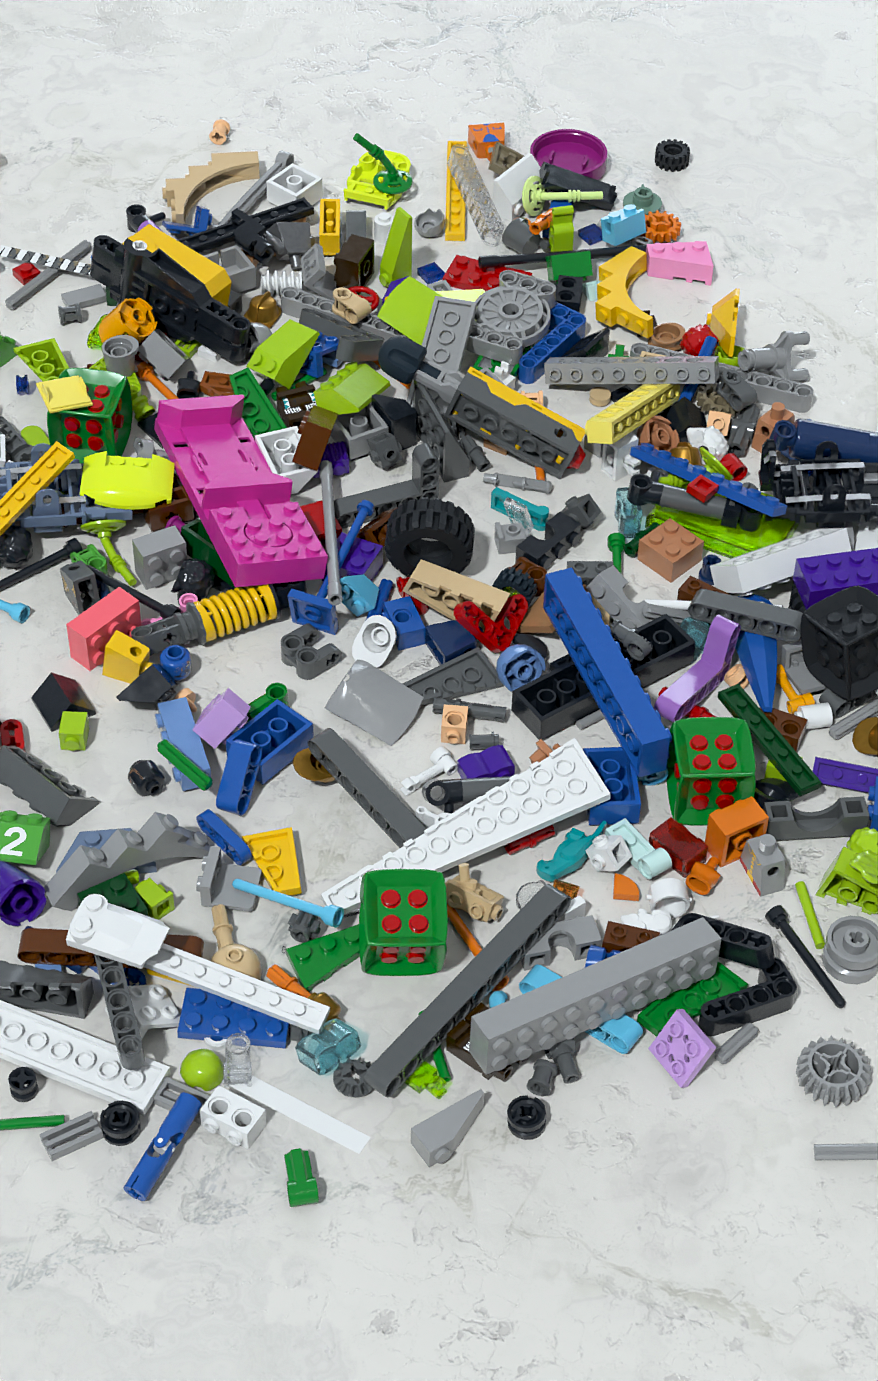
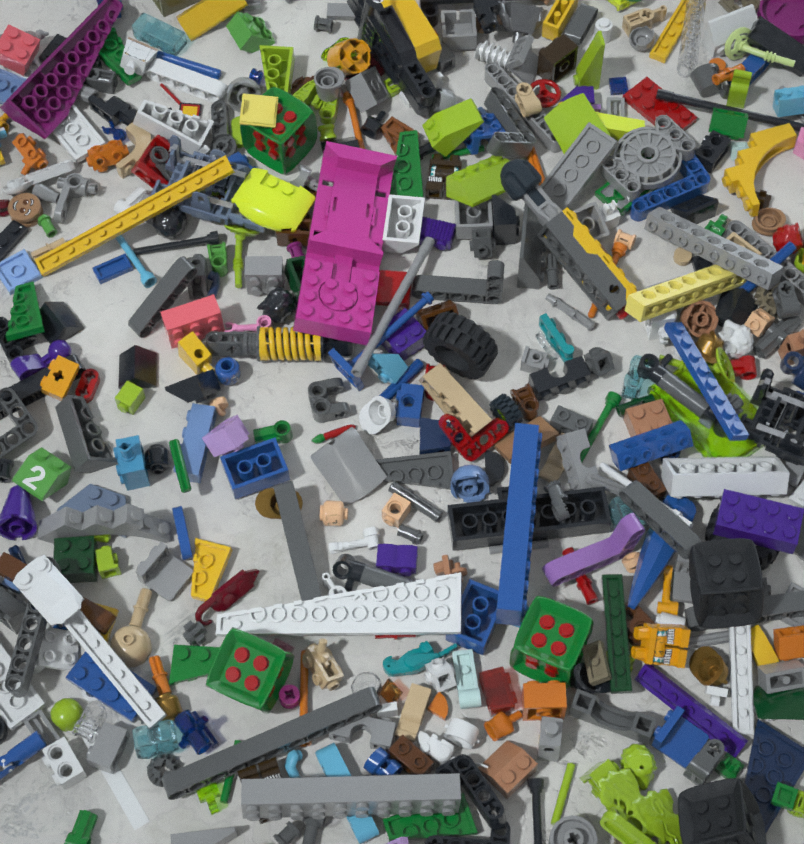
camera: 30 degrees right, 15 degrees up
(21, 402) = (237, 88): none -> light grey cylinder
(55, 614) = (162, 296): none -> dark grey beam
(122, 787) = (131, 463): none -> dark azure brick
(164, 610) = (244, 324): black piece -> none
(239, 777) = (213, 491): blue beam -> none
(263, 310) = (465, 77): pearl gold piece -> none
(276, 1079) = (108, 747): none -> light grey brick
(315, 434) = (428, 214): reddish brown wedge -> none
(319, 870) = (228, 593): none -> dark red plate
(323, 690) = (331, 434): none -> red piece
(331, 915) = (210, 637): medium azure piece -> none
(370, 1019) = (195, 732): none -> clear blue pin
(385, 753) = (333, 513): none -> light nougat head
(421, 202) = (643, 18): none -> tan piece
(456, 944) = (289, 701): none -> dark pink wheel
(591, 234) = (767, 95): clear blue tile -> none
(600, 898) = (413, 711): none -> tan piece
(689, 560) = (651, 445): none -> blue brick
(702, 488) = (692, 389): red plate -> none
(741, 905) = (508, 768): none -> nougat slope
(771, 774) = (596, 663): none -> dark tan plate
(813, 734) = (661, 644): none -> light orange hips

